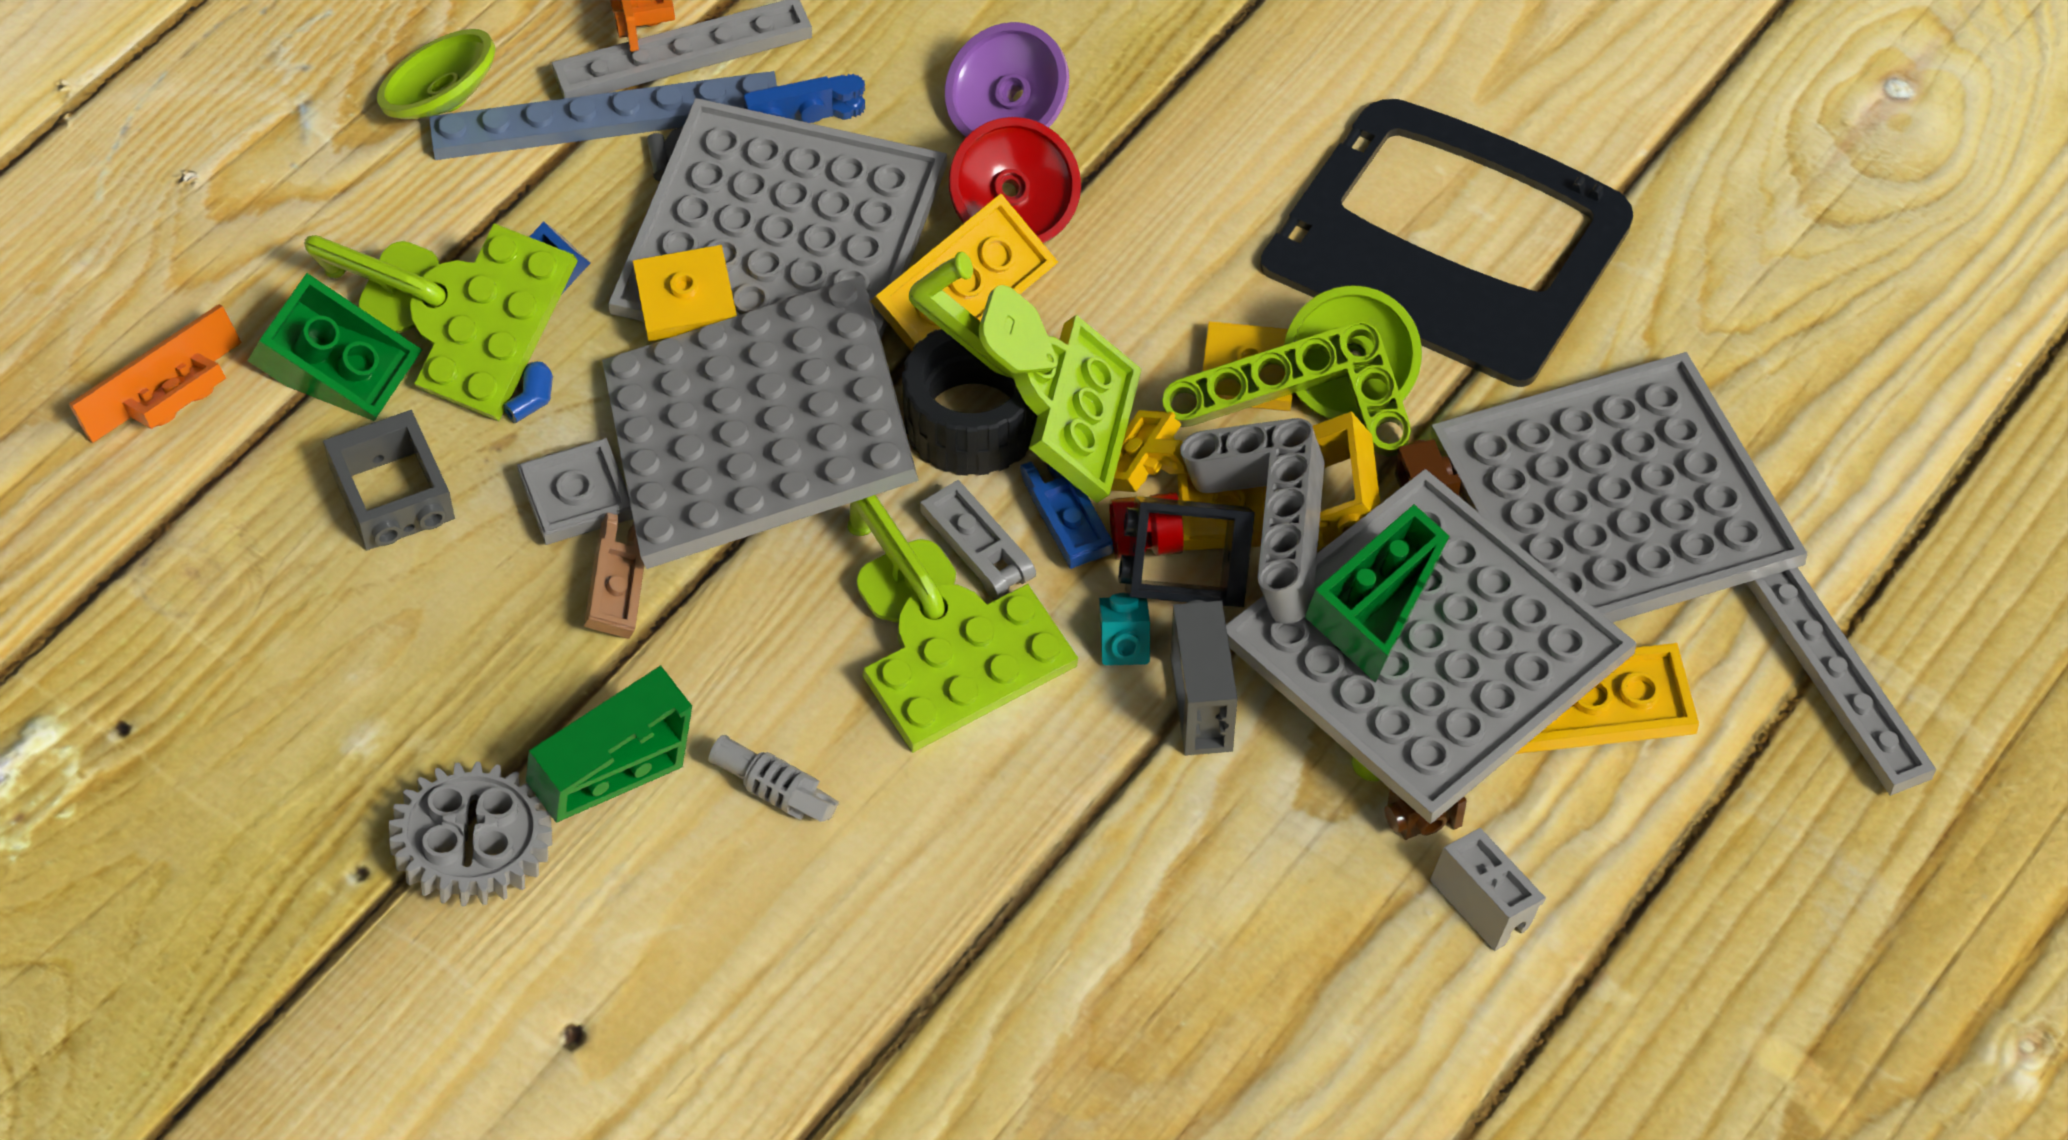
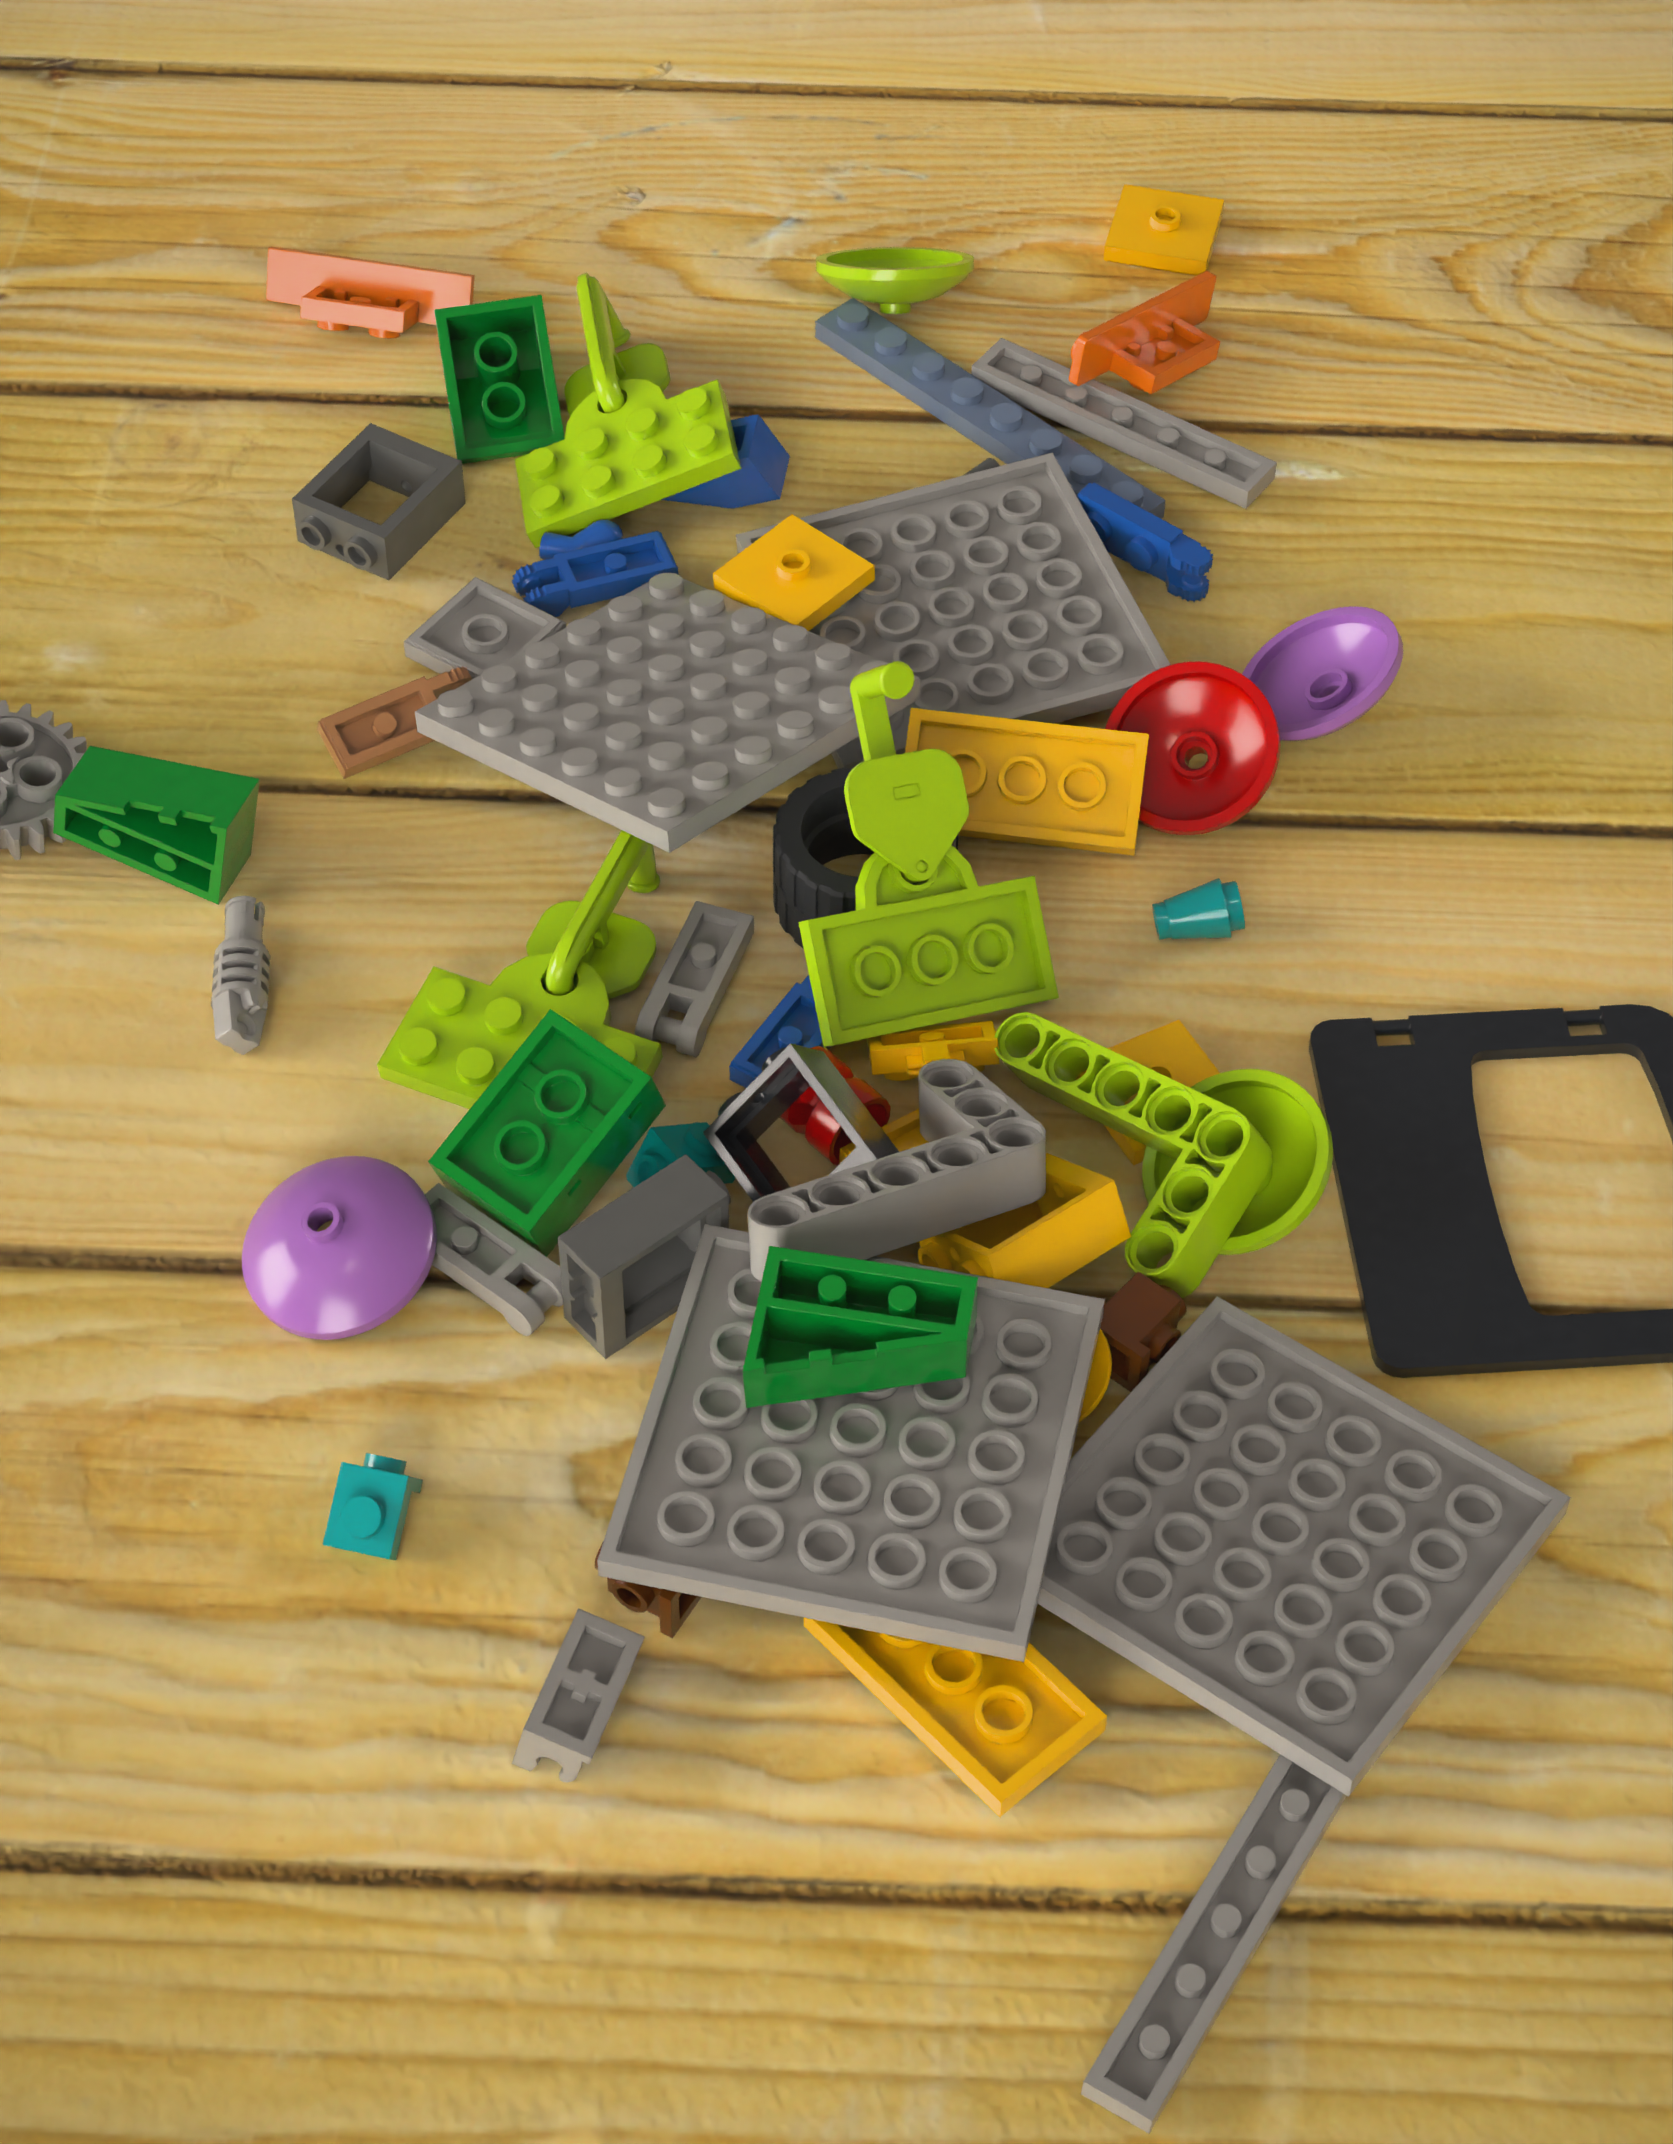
camera: 55 degrees right, 5 degrees down
(570, 395) = (593, 573): none -> blue hinge
(1046, 870) = (355, 1269): none -> medium lavender dish
(1070, 674) = (548, 1132): none -> green piece
(1117, 768) = (493, 1262): none -> light grey plate
(1135, 260) = (1202, 912): none -> teal cone
(1269, 923) = (370, 1506): none -> teal bracket

